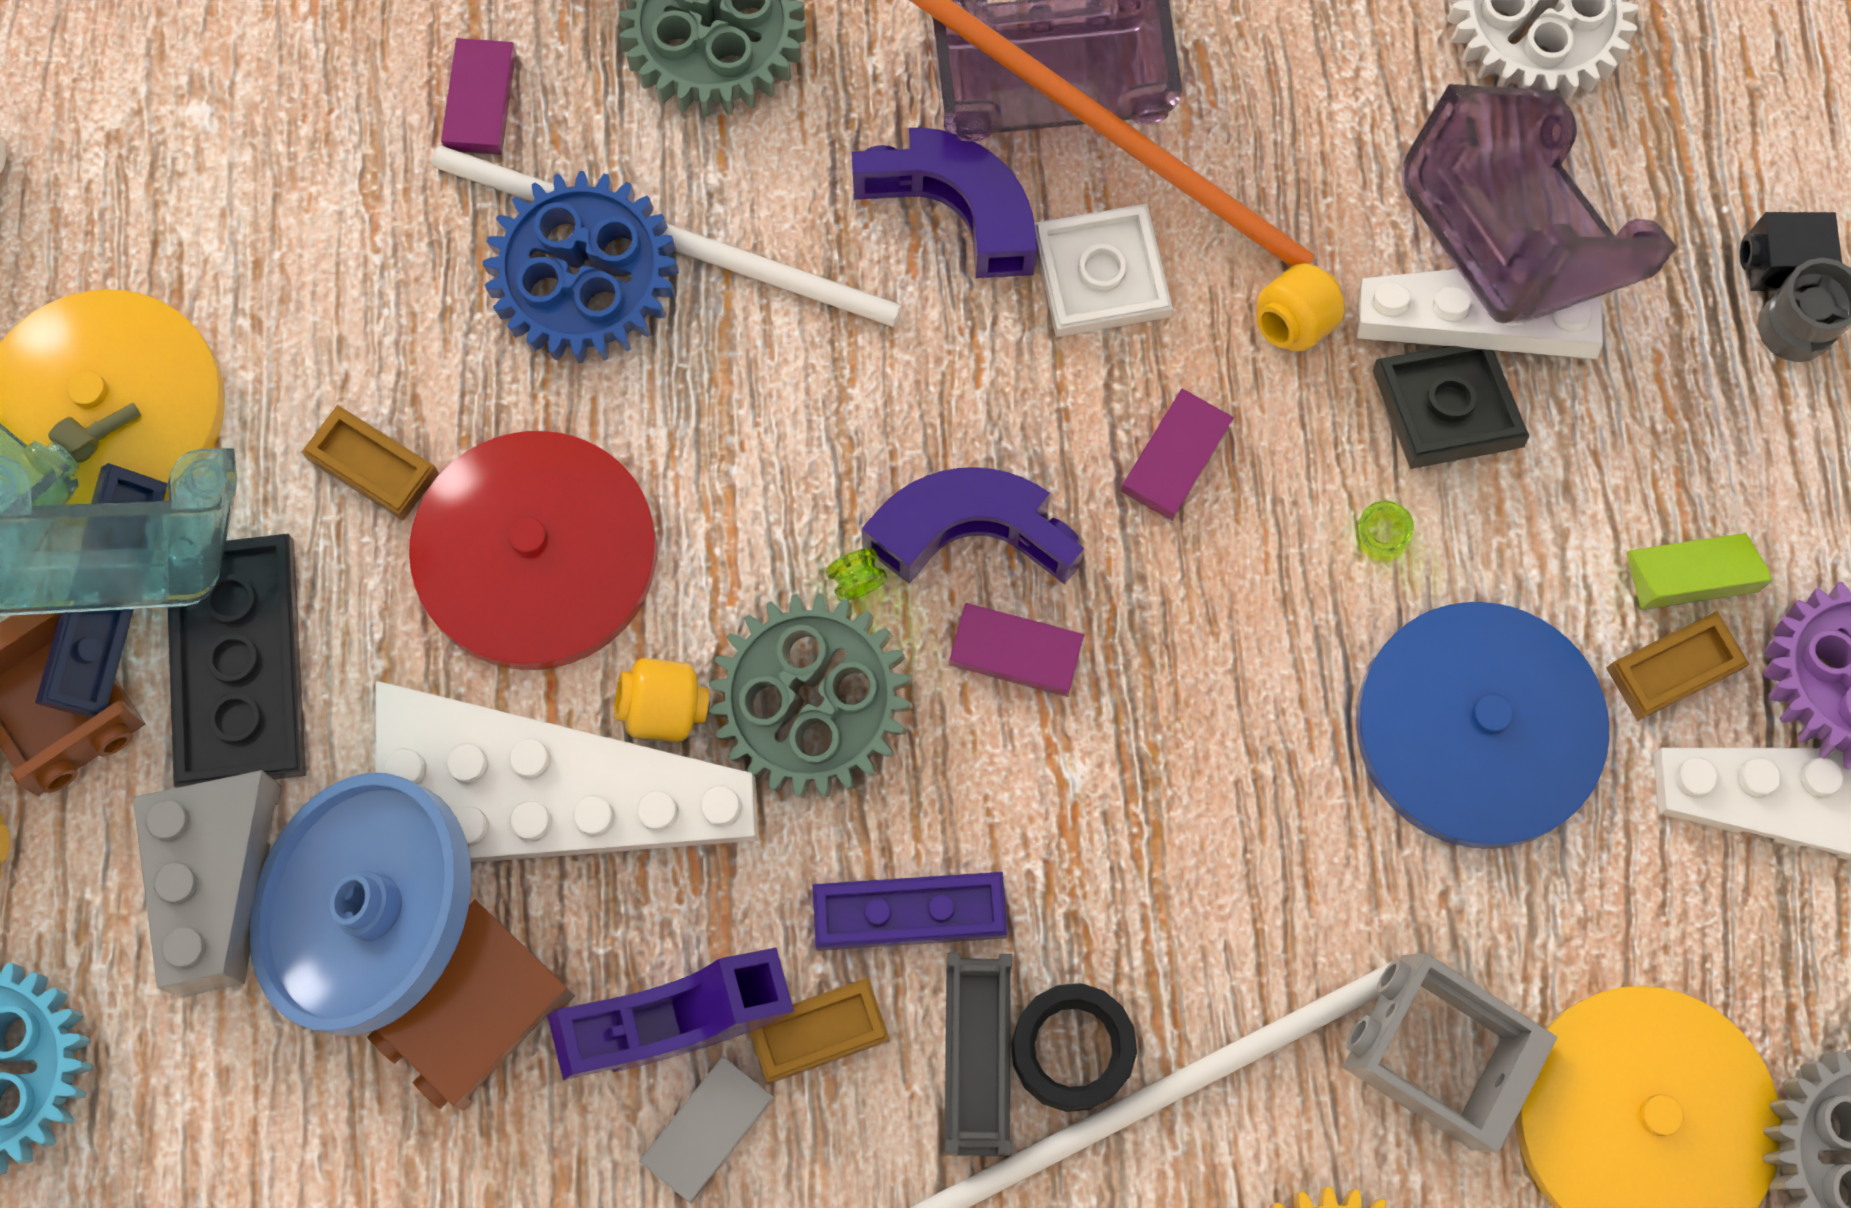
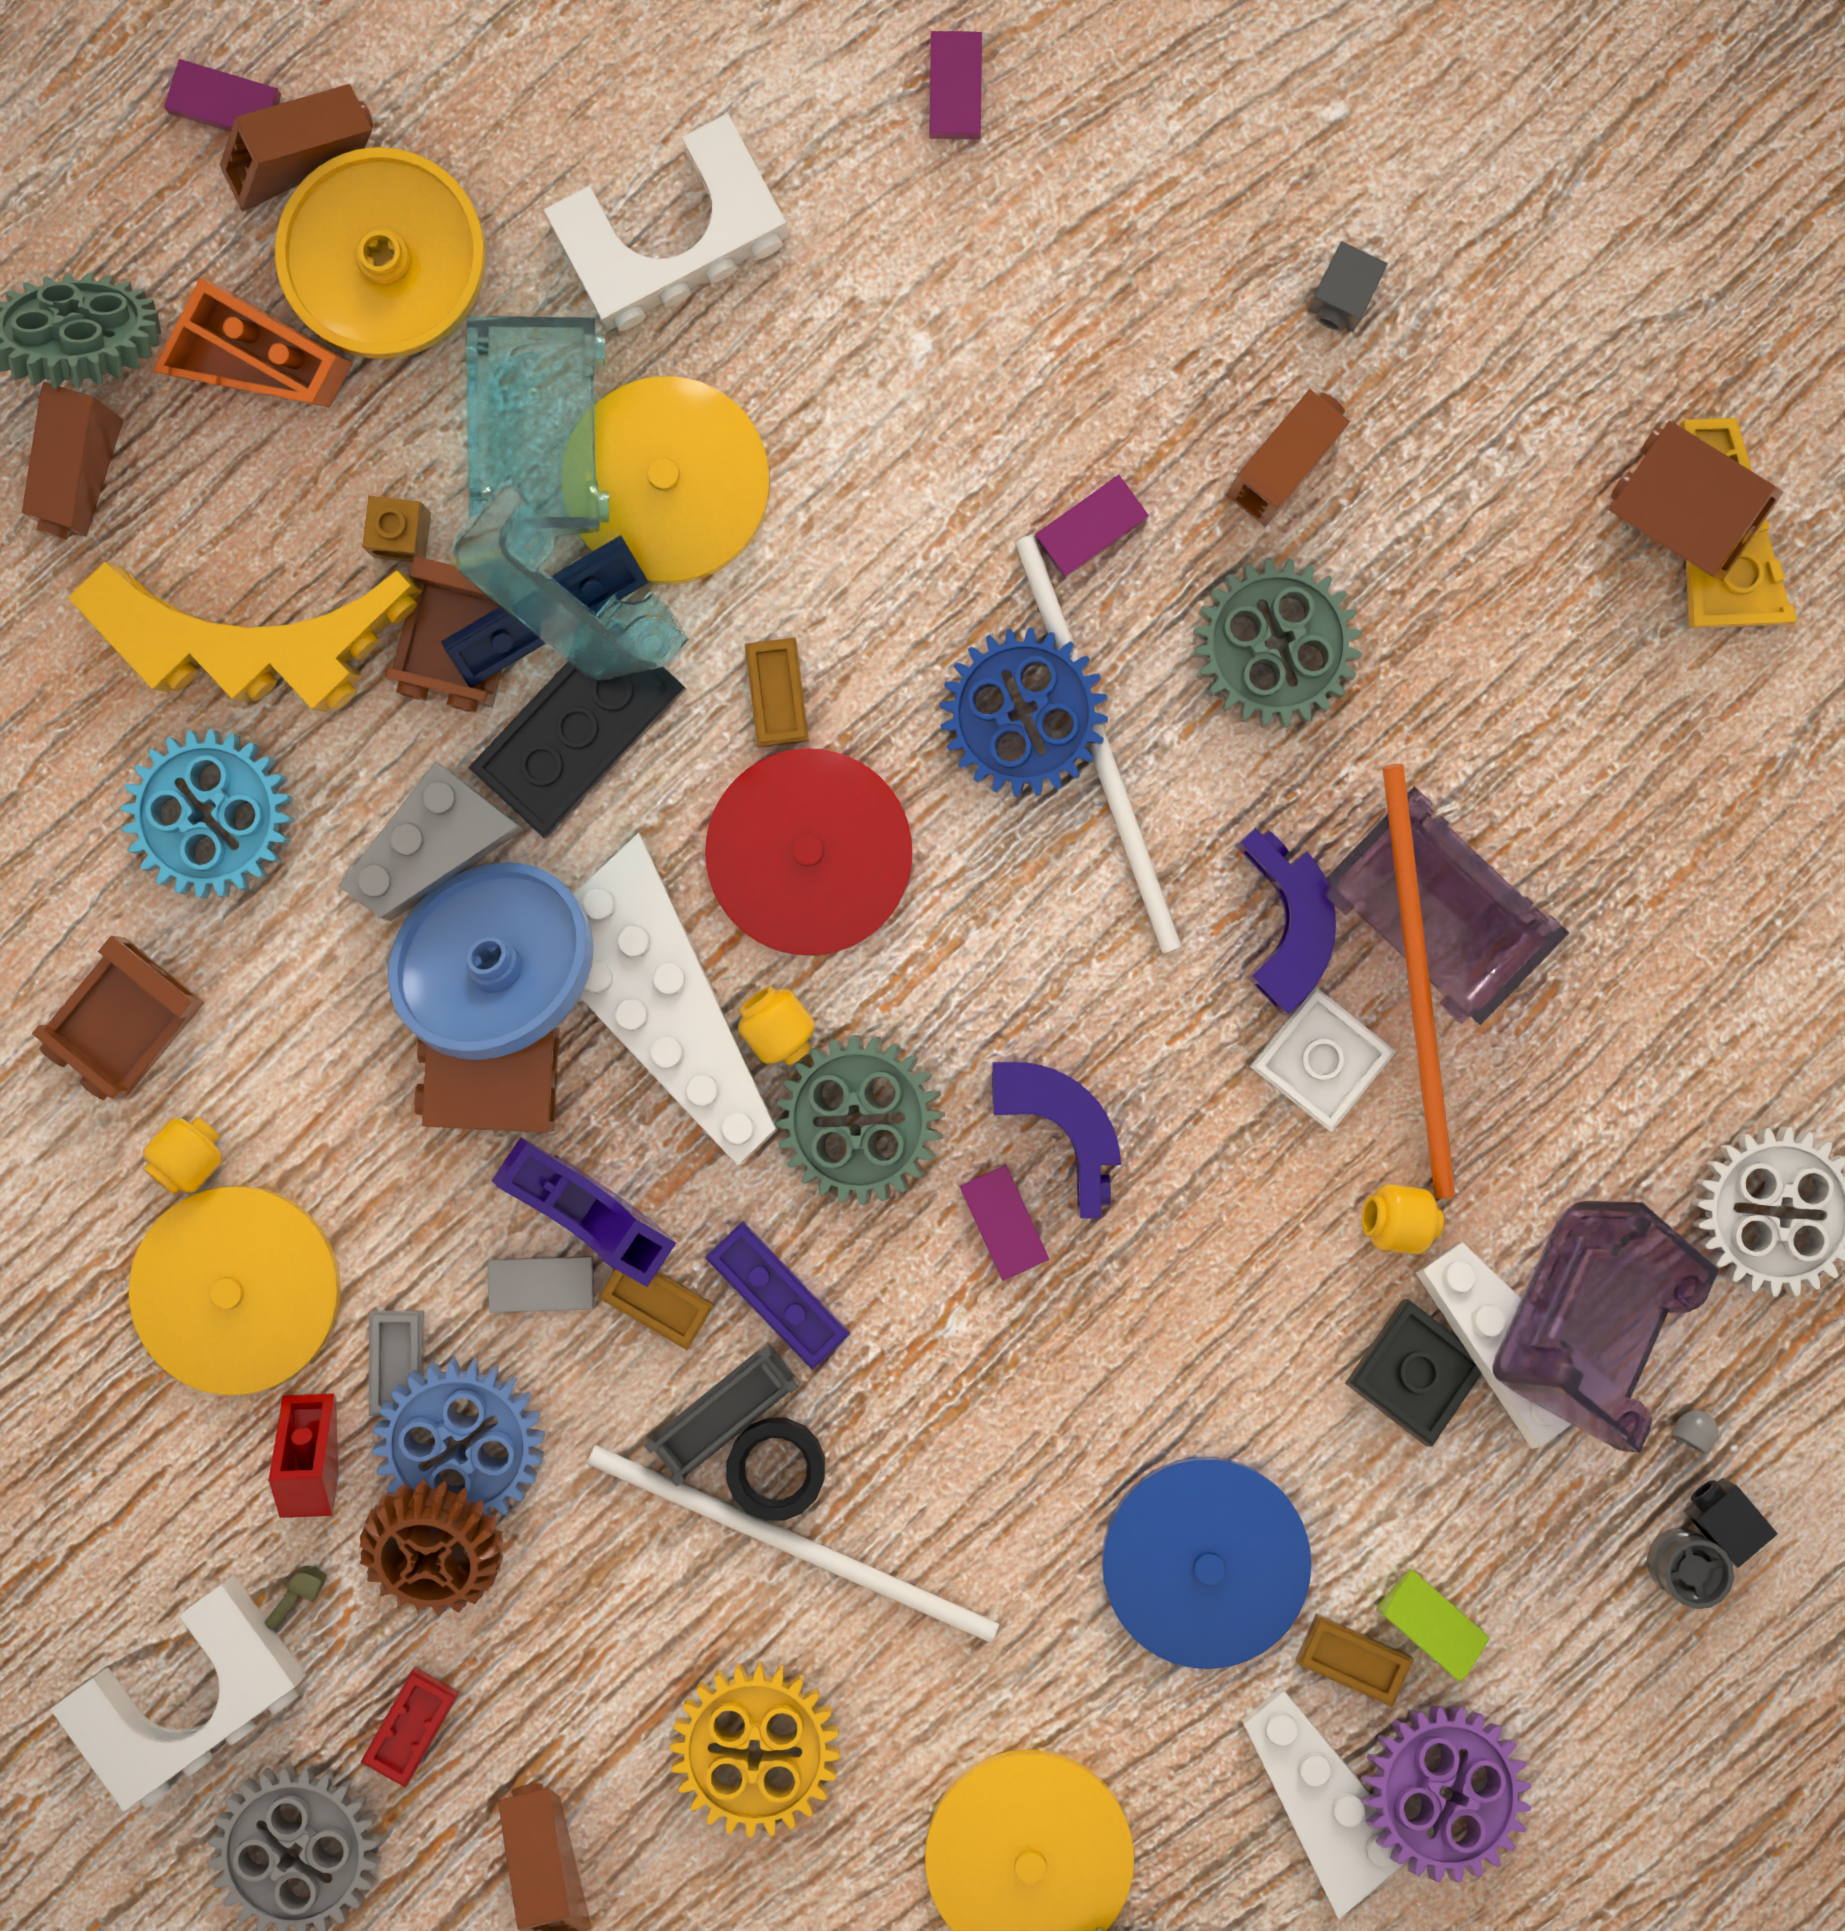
camera: 50 degrees right, 15 degrees up
(83, 442) = (623, 503): olive hand -> none
(856, 574) = (965, 1079): clear neon green bush -> none
(1177, 454) = (1229, 1217): magenta tile -> none
(1398, 543) = (1285, 1412): clear neon green bush -> none
(1503, 1082) = (972, 1752): light grey window -> none
(1688, 221) = (1696, 1430): none -> light grey hinge

